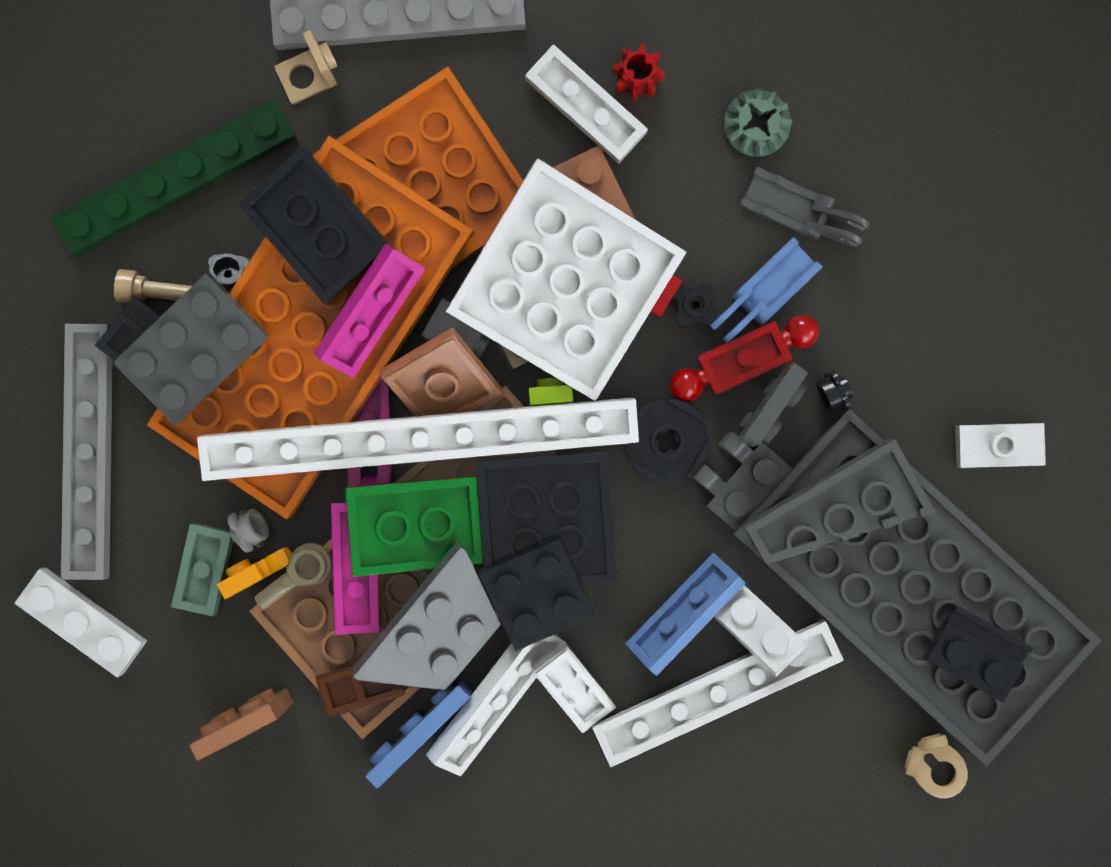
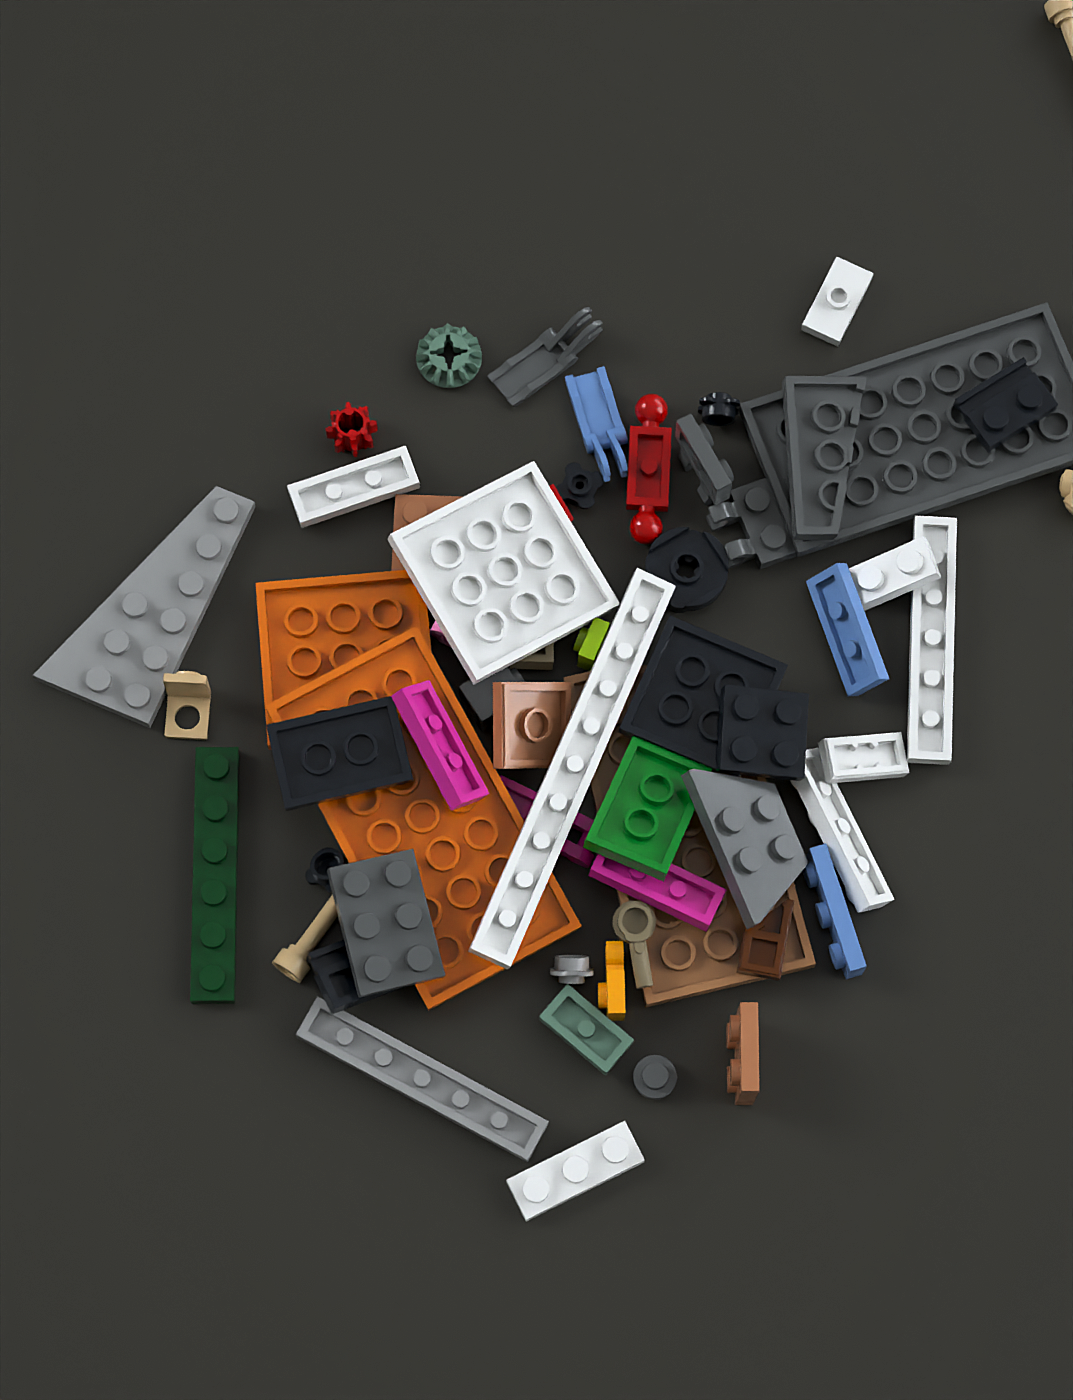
camera: 70 degrees left, 15 degrees down
(194, 648) = (654, 1077): none -> dark grey plate

